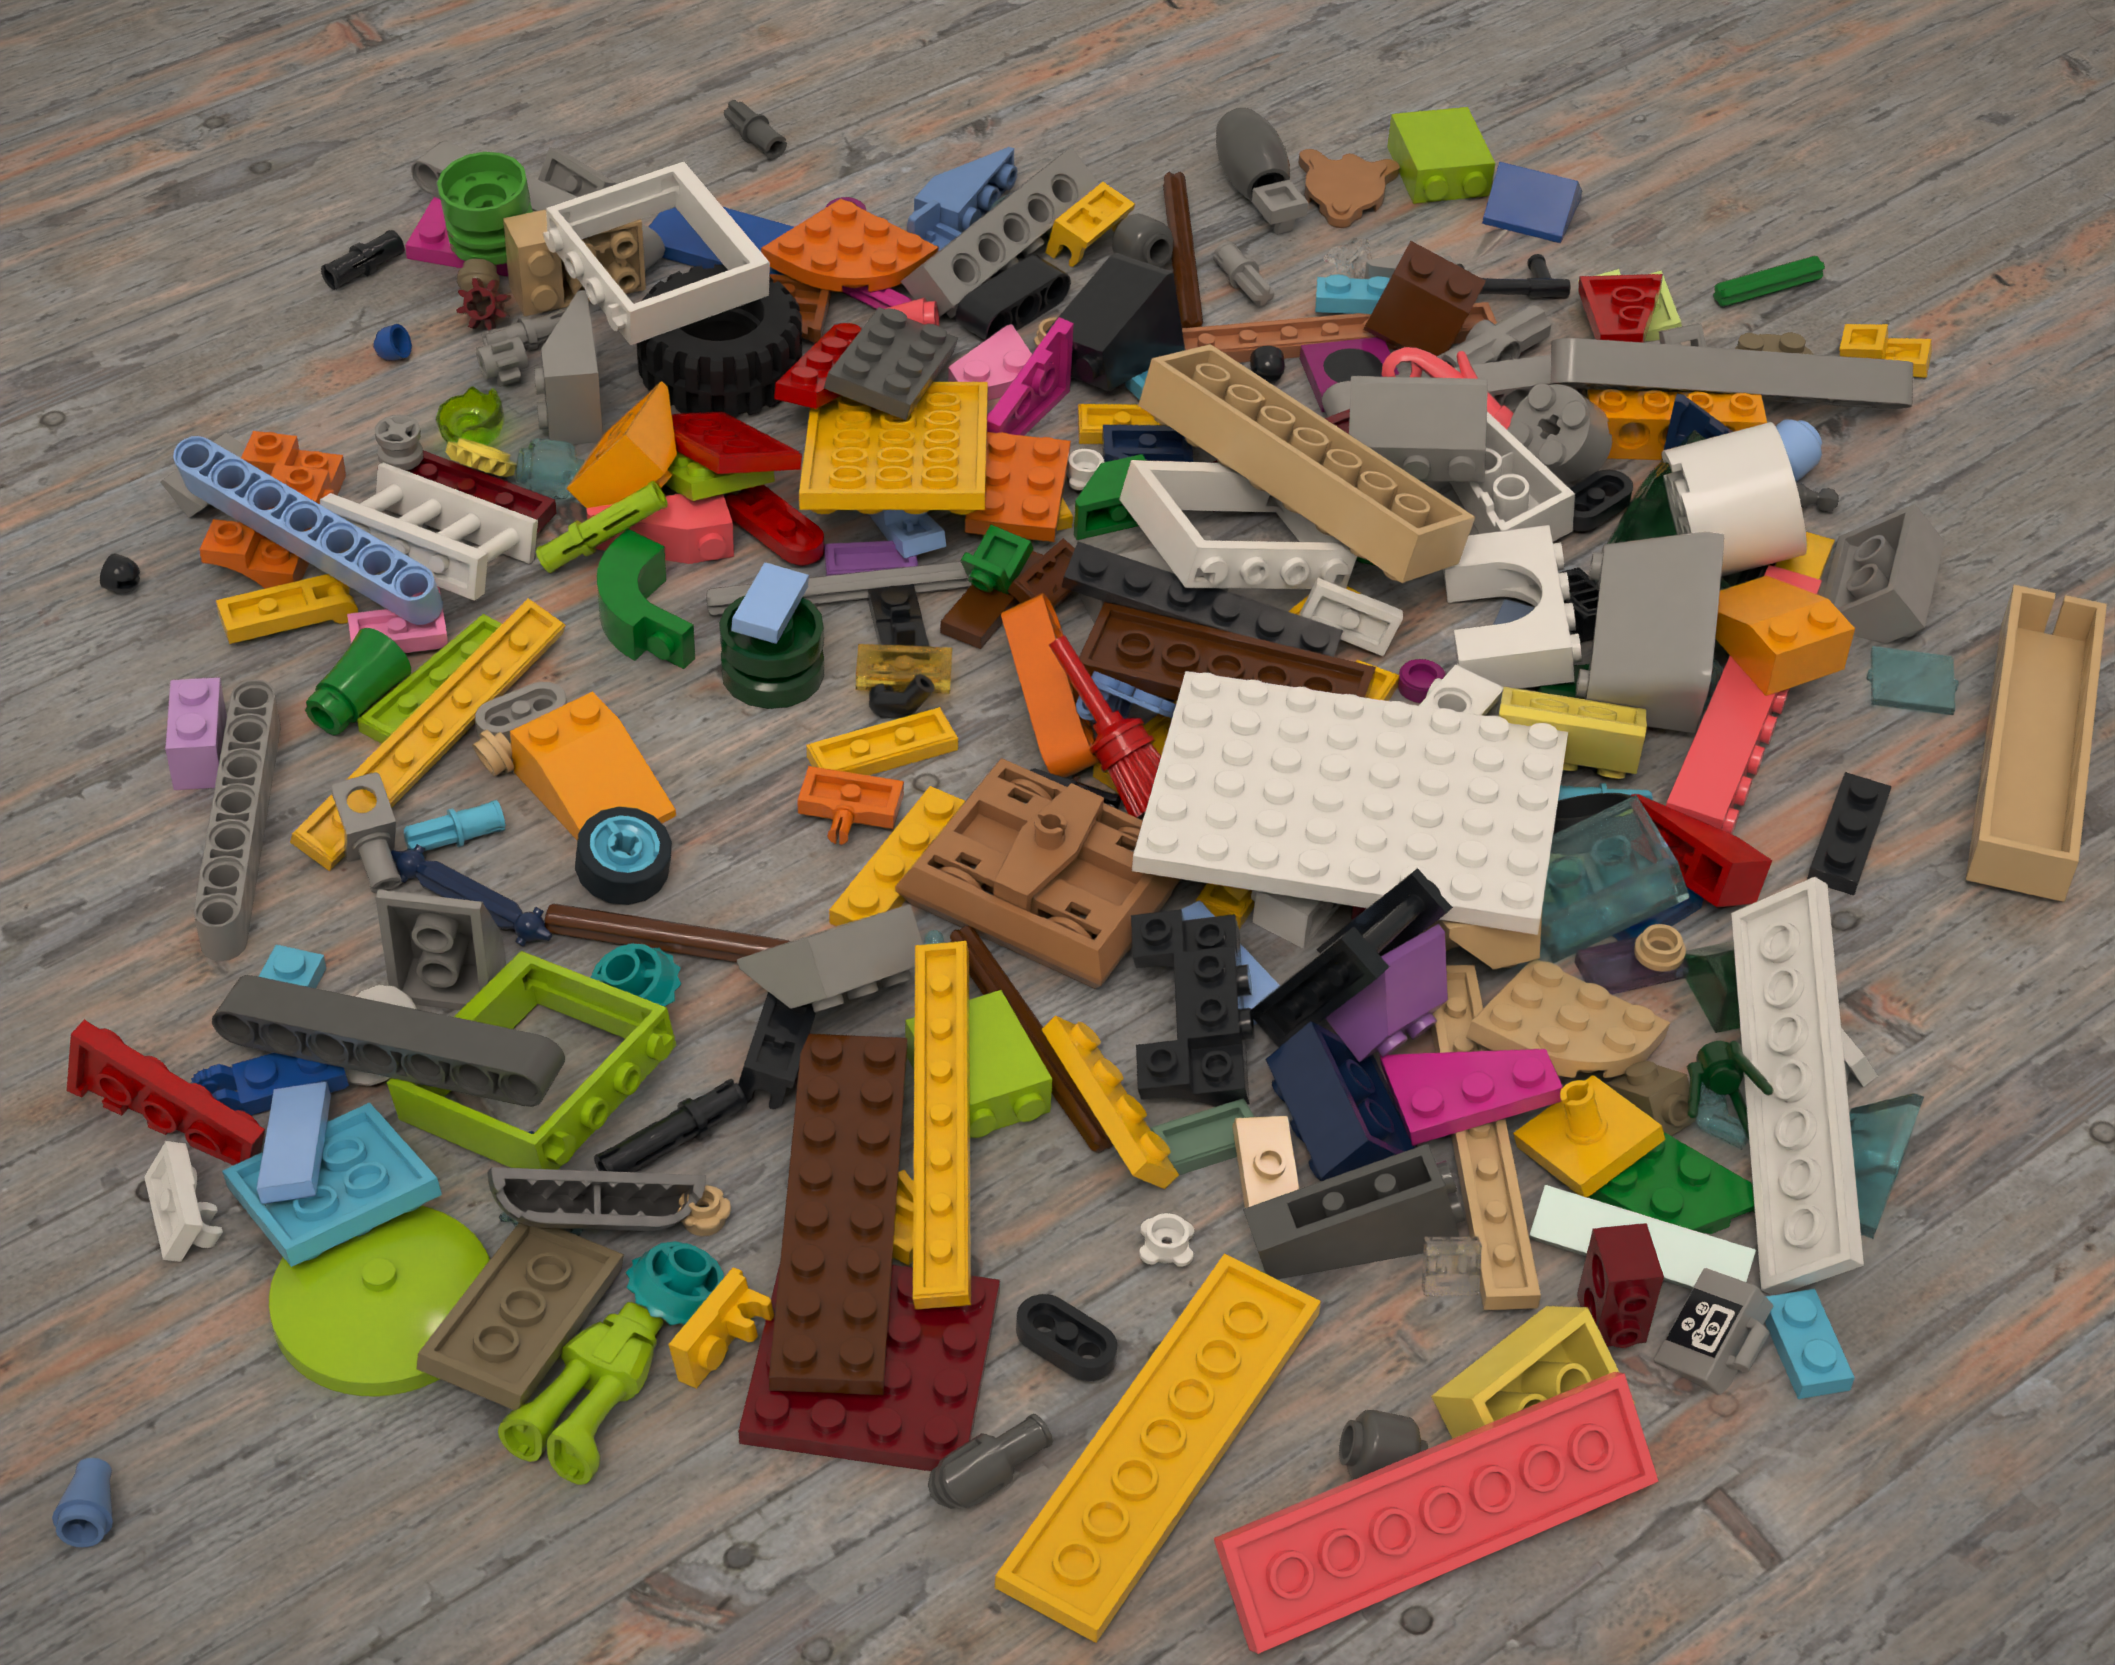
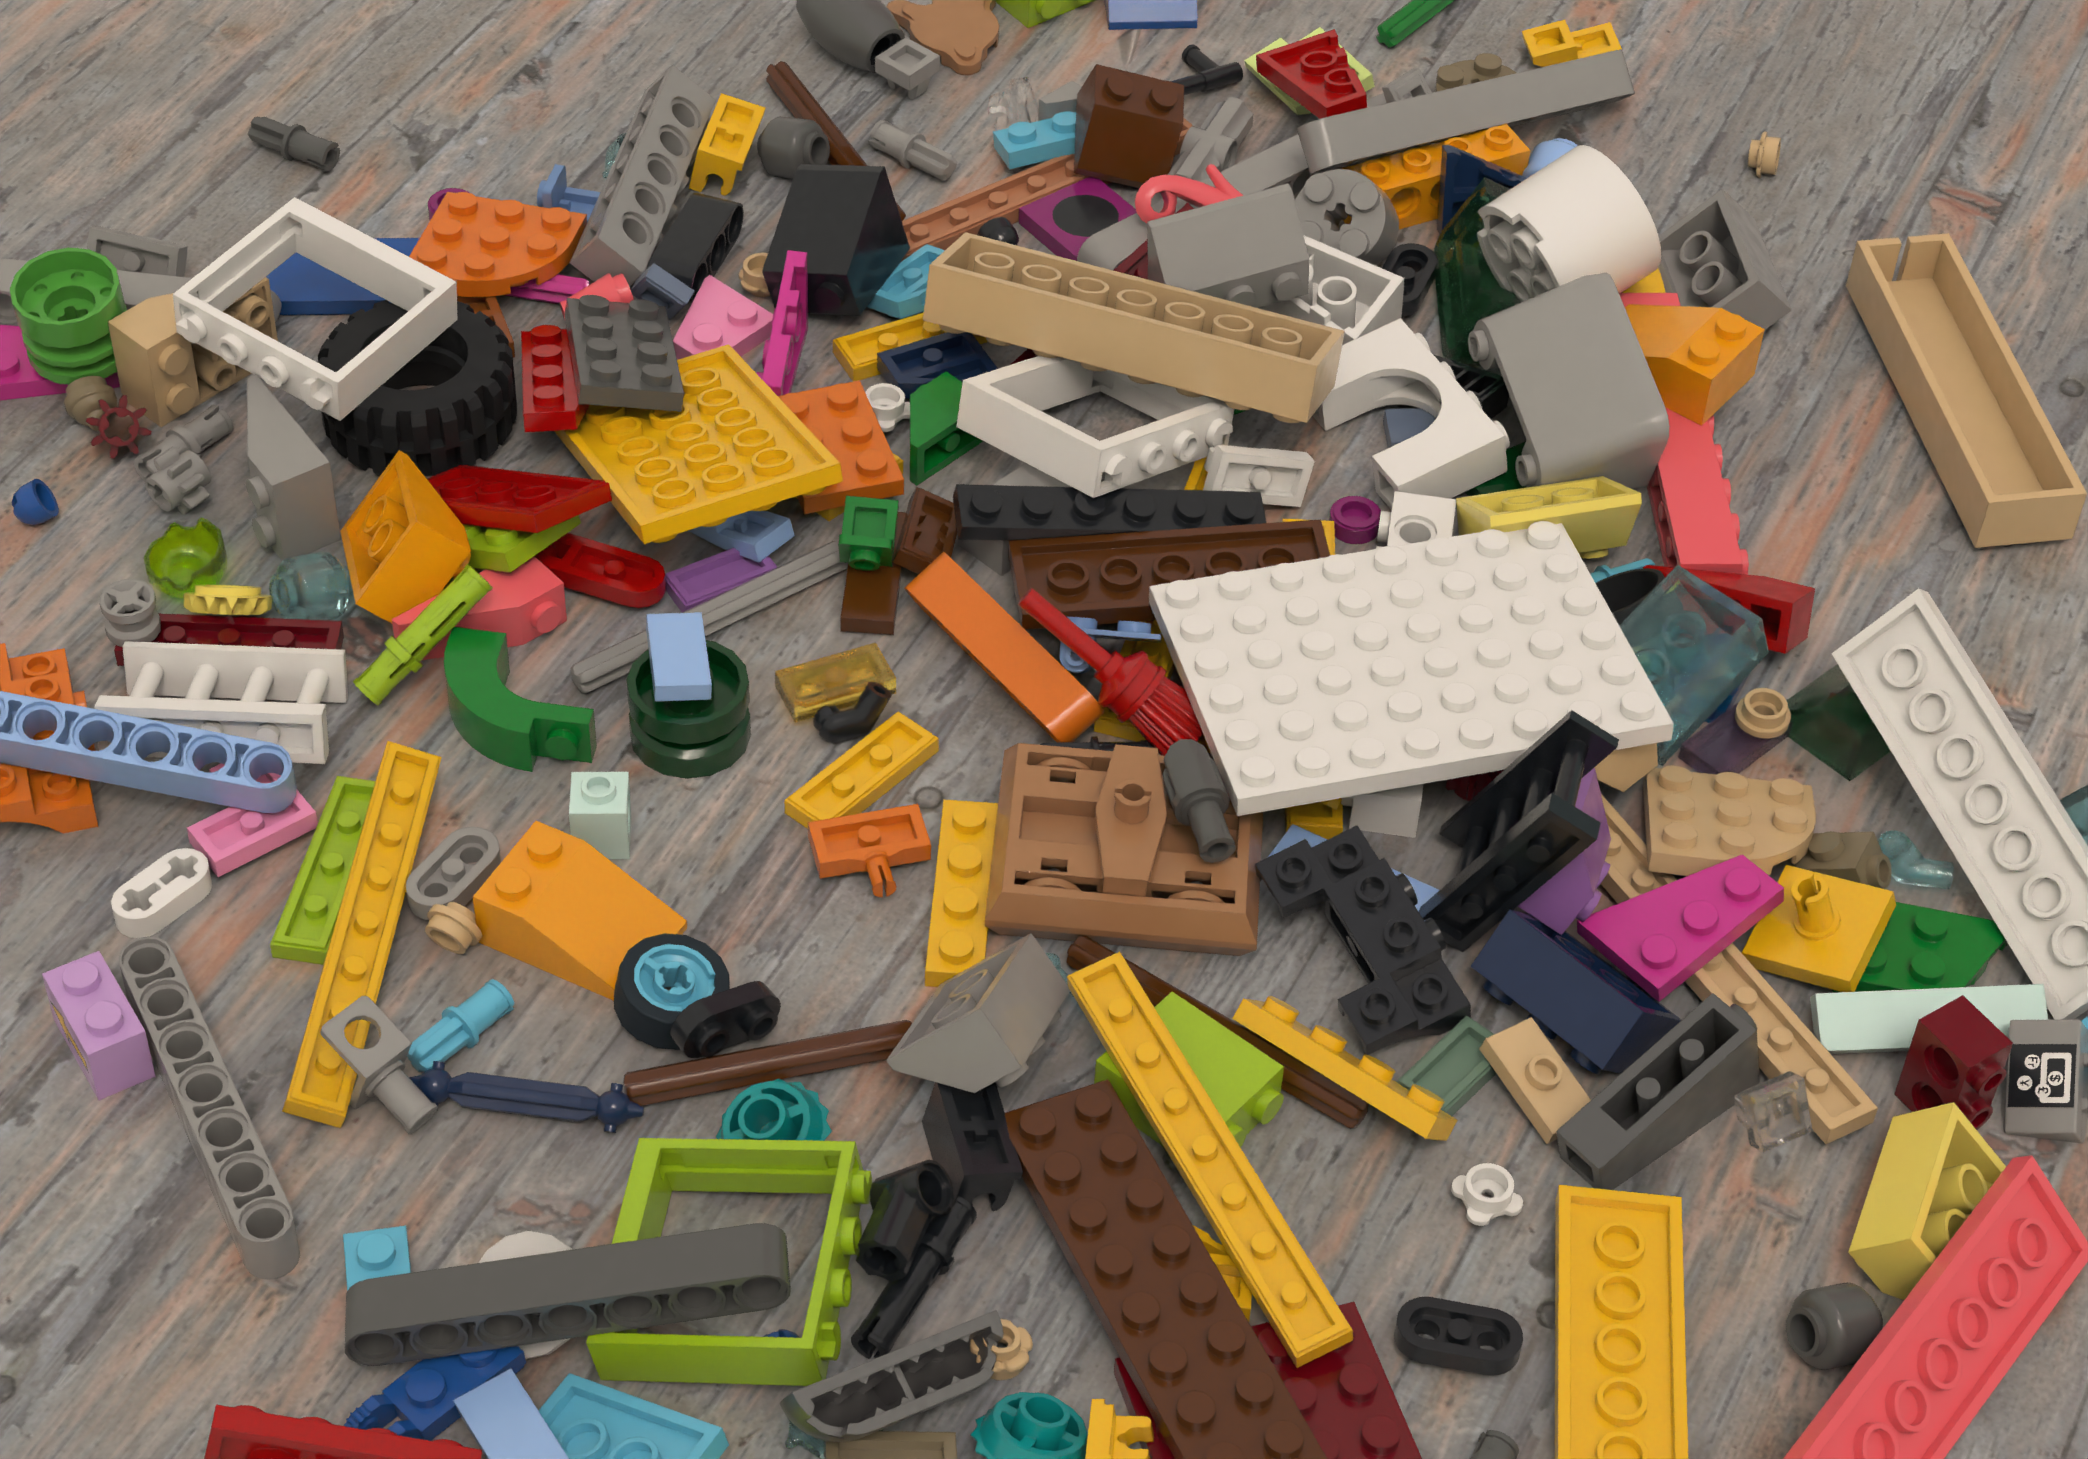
camera: 25 degrees left, 0 degrees up
(285, 608) = (104, 845): yellow plate -> none
(304, 656) = (161, 892): none -> white beam
(357, 681) = (248, 899): green plant -> none
(438, 947) = (557, 1170): light grey slope -> none
(648, 890) = (726, 1020): none -> black plate
(654, 707) = (602, 811): none -> light aqua brick
(675, 1080) = (901, 1214): none -> black piece
(897, 616) = (789, 629): black plate -> none
(959, 324) = (662, 289): none -> sand blue tile
(970, 189) = (577, 142): medium blue slope -> none
(1109, 846) = (1199, 798): none -> dark grey arm
(1721, 1069) = (1901, 813): dark green plant -> none
(1849, 833) = (1845, 538): black plate -> none
(1912, 680) = (1803, 367): clear light blue piece -> none
(2000, 492) = (1764, 154): none -> tan plate

